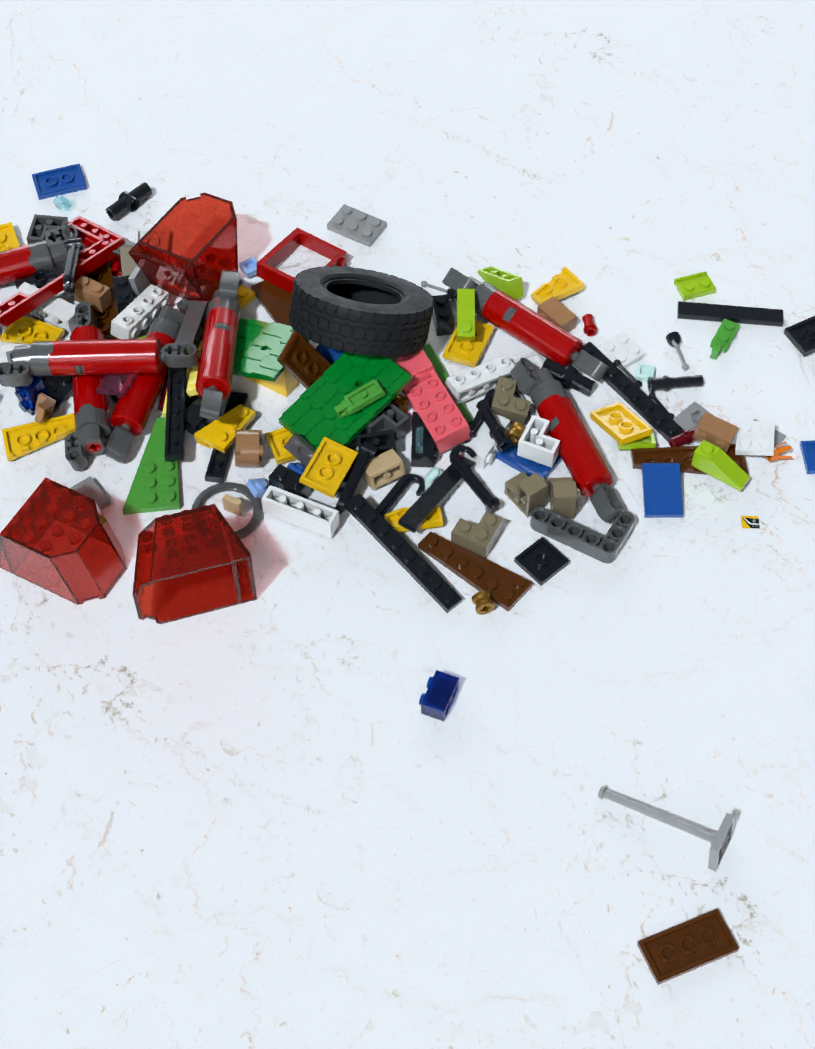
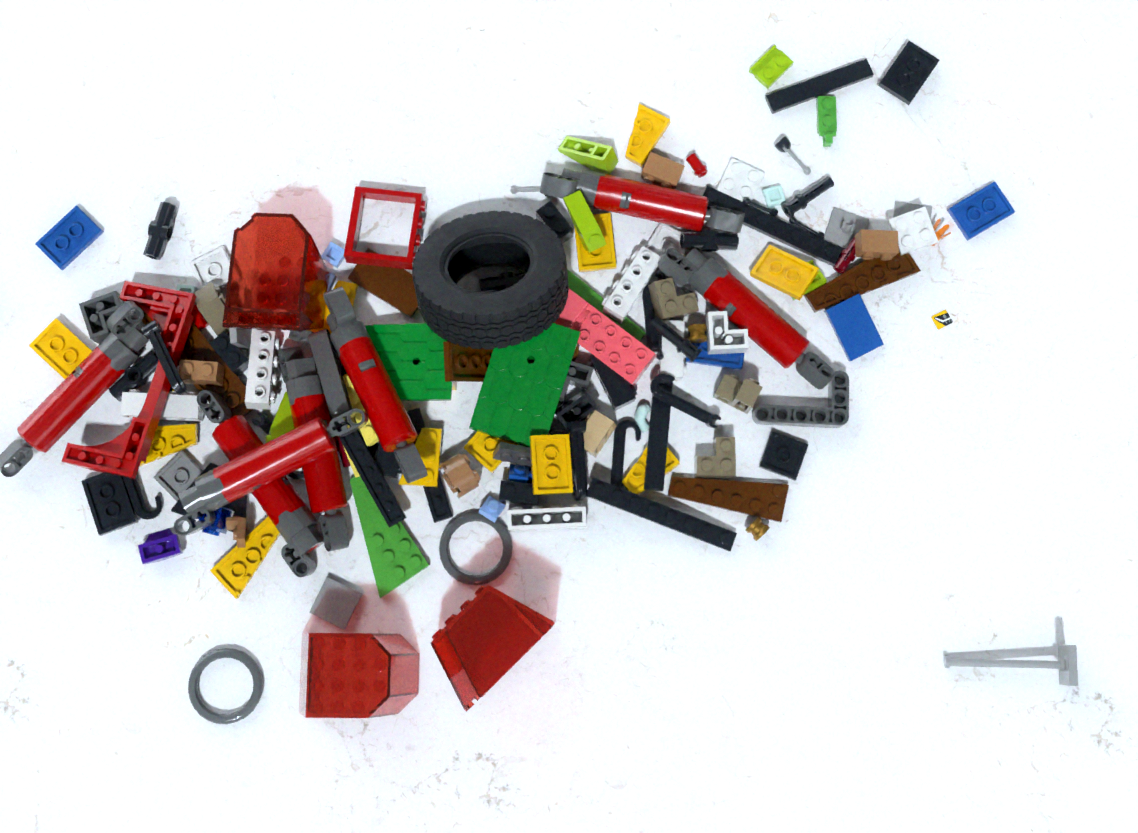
camera: 30 degrees left, 25 degrees up
(62, 203) = (92, 266): clear light blue tile -> none
(116, 384) = (299, 480): clear pink piece -> none
(233, 504) = (482, 544): tan tile -> none
(356, 225) = (408, 148): light grey plate -> none
(359, 398) = (544, 379): bright green hinge -> none
(419, 440) = (617, 391): clear light blue tile -> none
(439, 695) = (768, 642): clear blue brick -> none
(563, 496) = (774, 383): dark tan brick -> none
(687, 946) = (1076, 764): reddish brown tile -> none
(719, 465) = (895, 279): lime slope -> none

